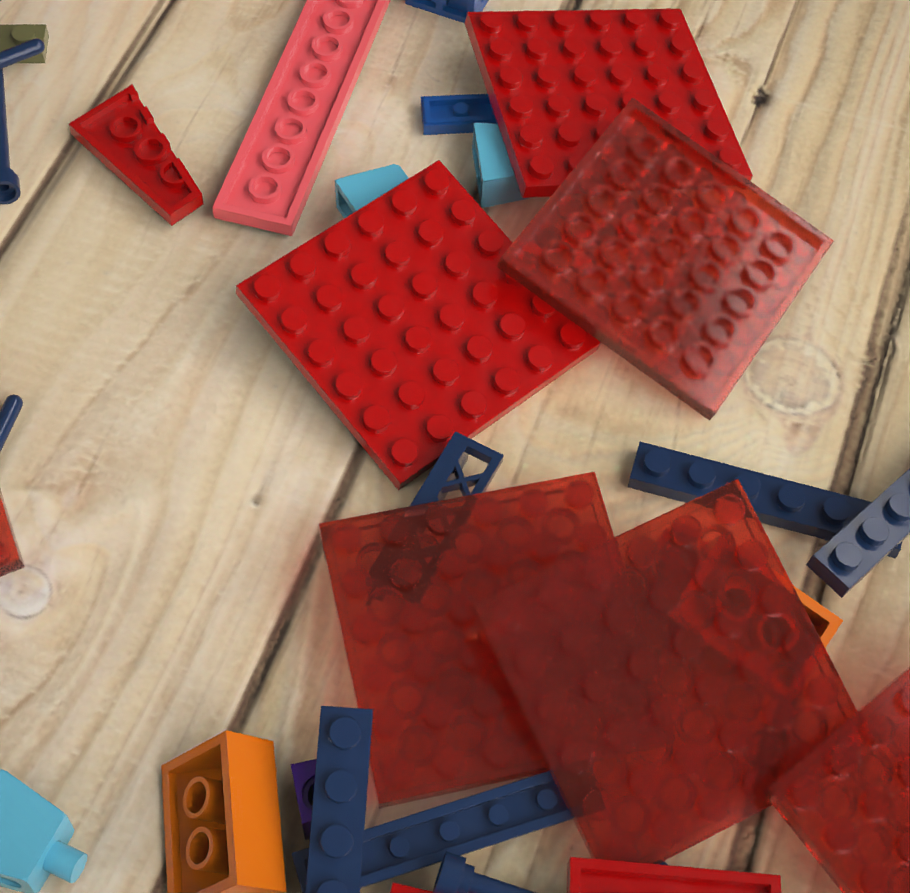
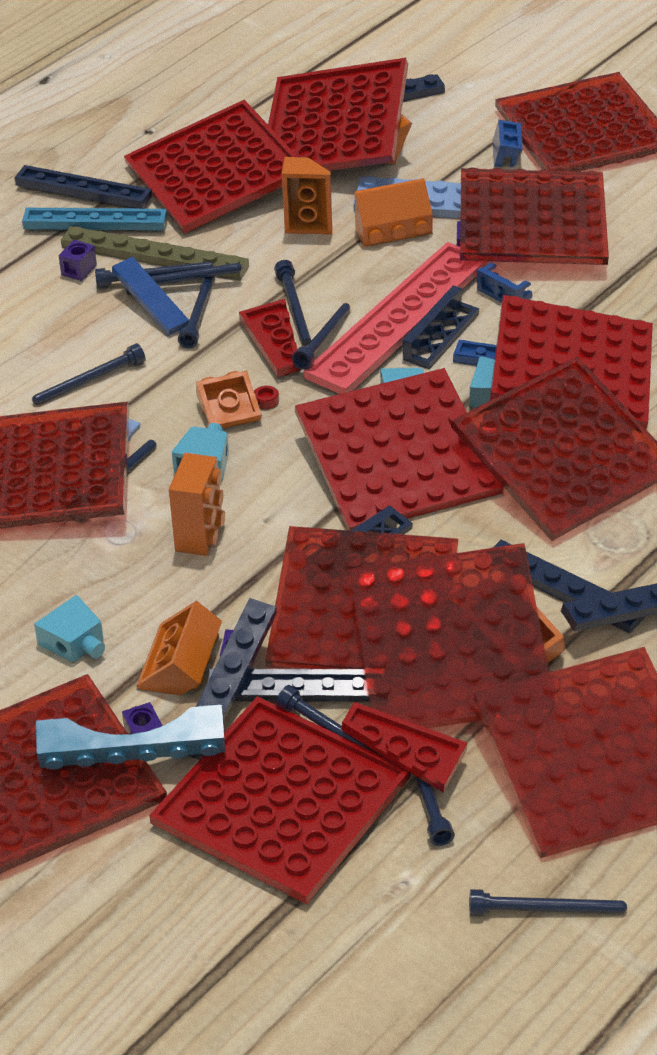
camera: 25 degrees right, 15 degrees down
(108, 401) = (203, 441): none -> medium azure torso
(113, 38) = (285, 272): none -> dark blue piece
(113, 292) = (228, 399): none -> orange plate
(149, 522) = (196, 504): none -> orange brick
(167, 267) = (267, 397): none -> red tile
(207, 184) = (304, 356): none -> dark blue piece
(372, 80) = (432, 328): none -> dark blue fence

